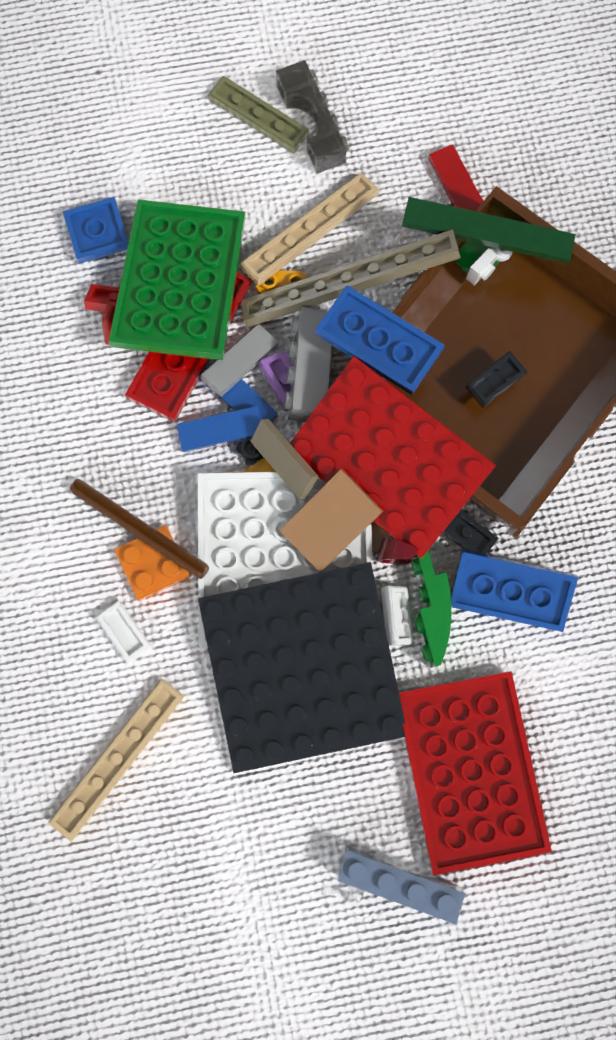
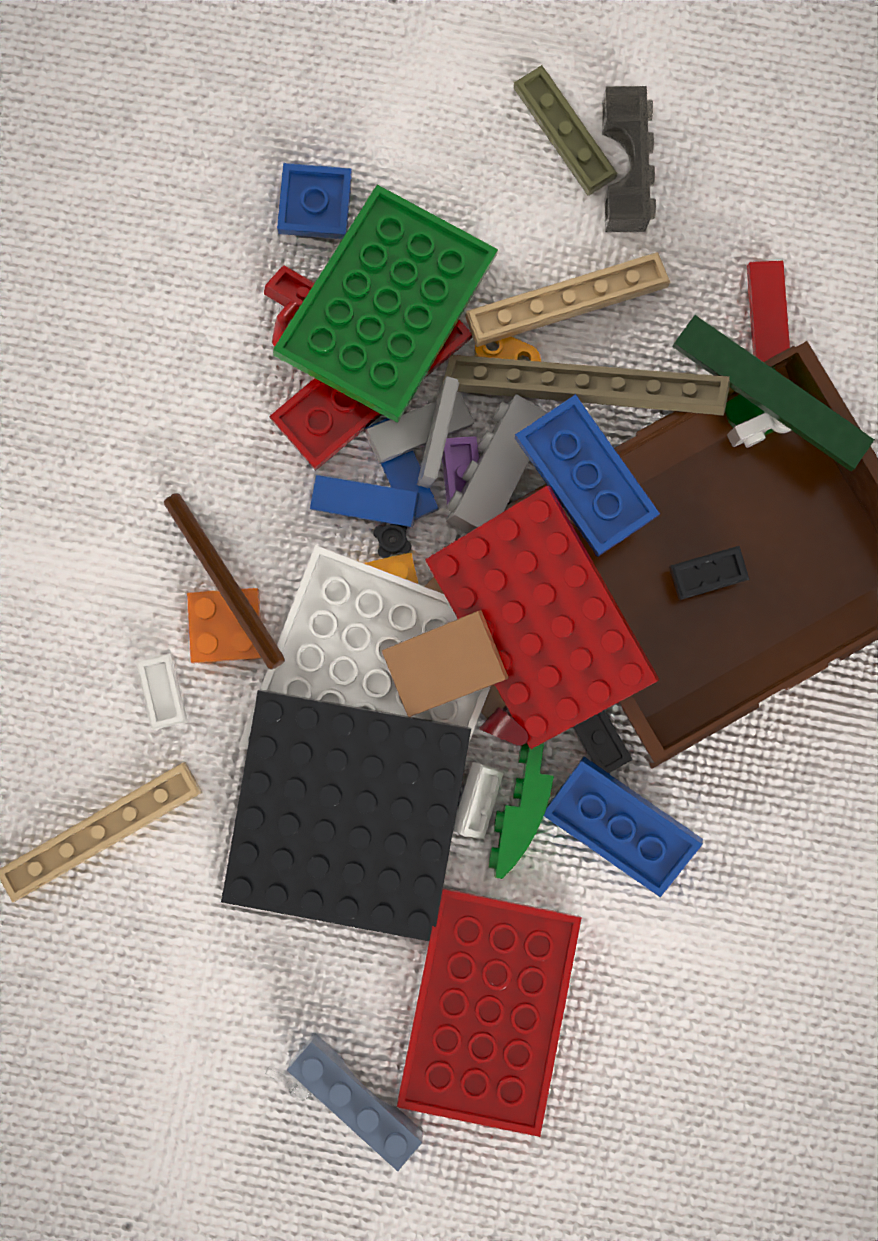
camera: 20 degrees right, 5 degrees up
(255, 356) = (438, 432): none -> light grey tile
(284, 458) = (420, 569): dark tan tile -> none

